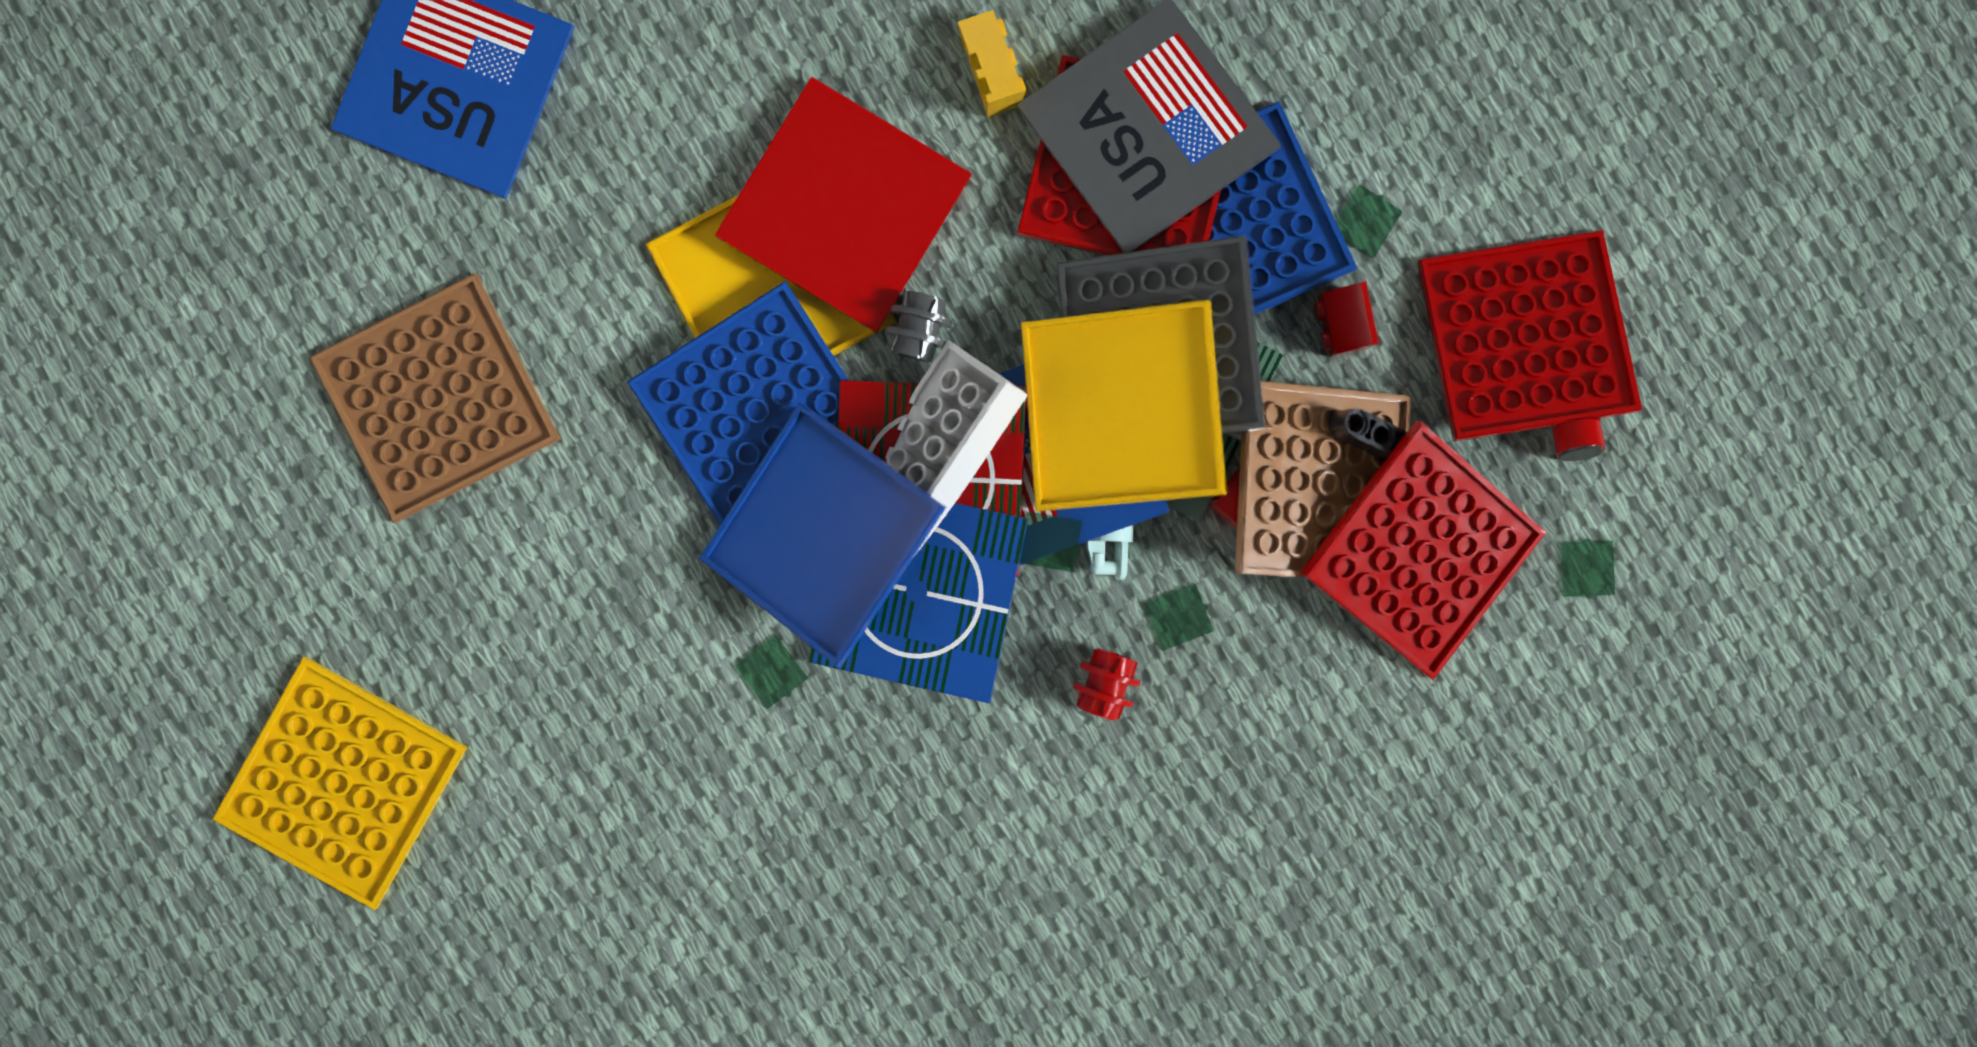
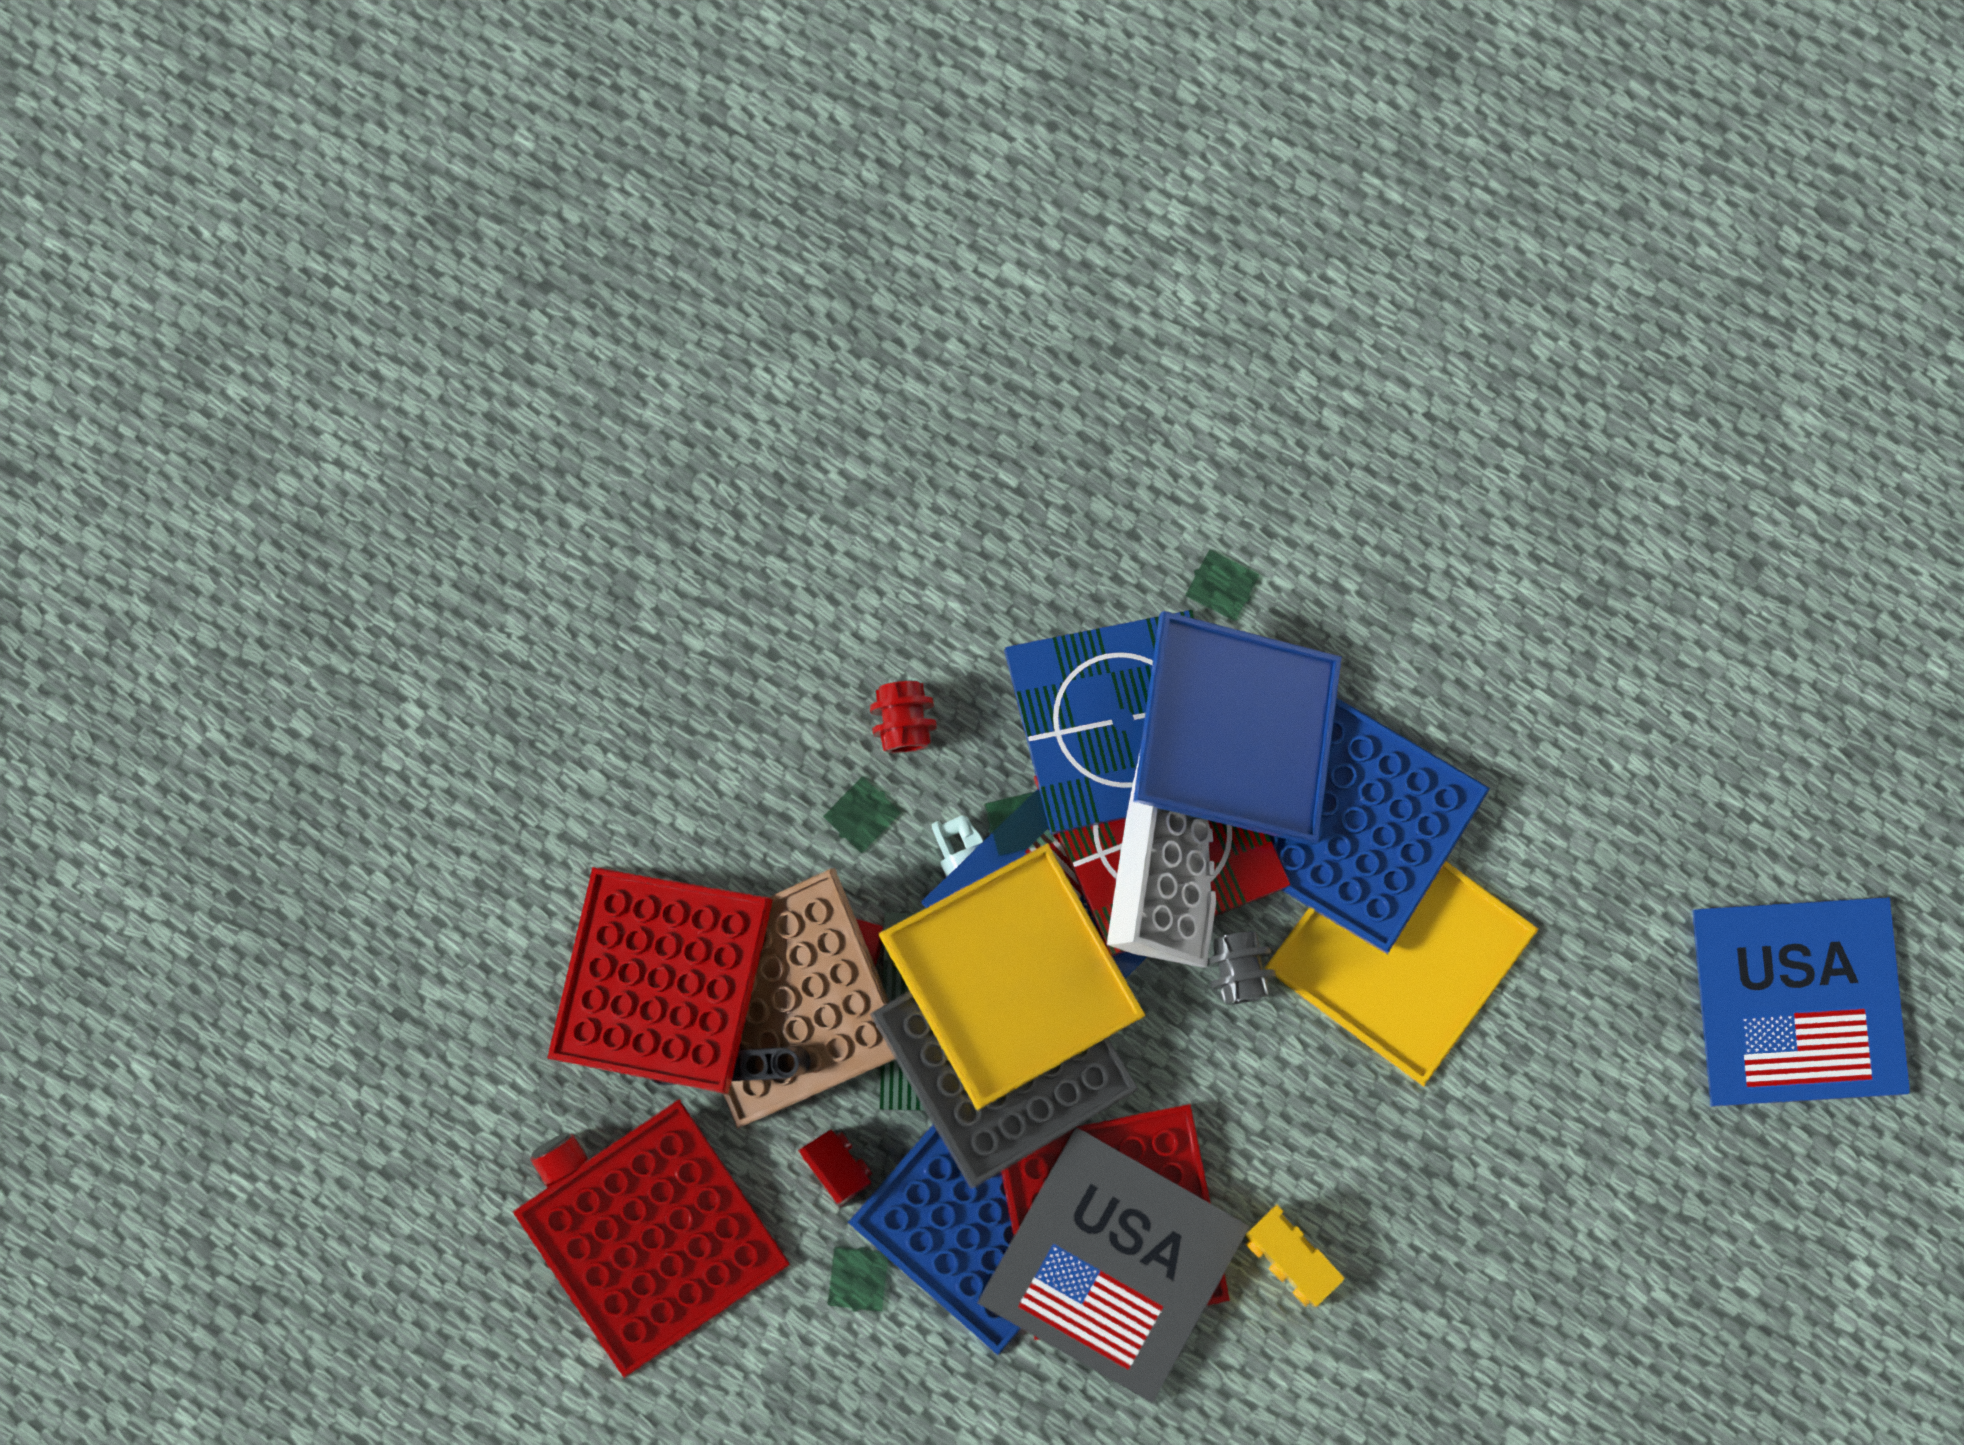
camera: 155 degrees right, 10 degrees down
(340, 783) = (1571, 300): yellow tile -> none
(435, 398) = (1663, 692): medium nougat tile -> none
(843, 205) = (1368, 1053): red tile -> none
(1588, 568) = (490, 1043): clear green piece -> none

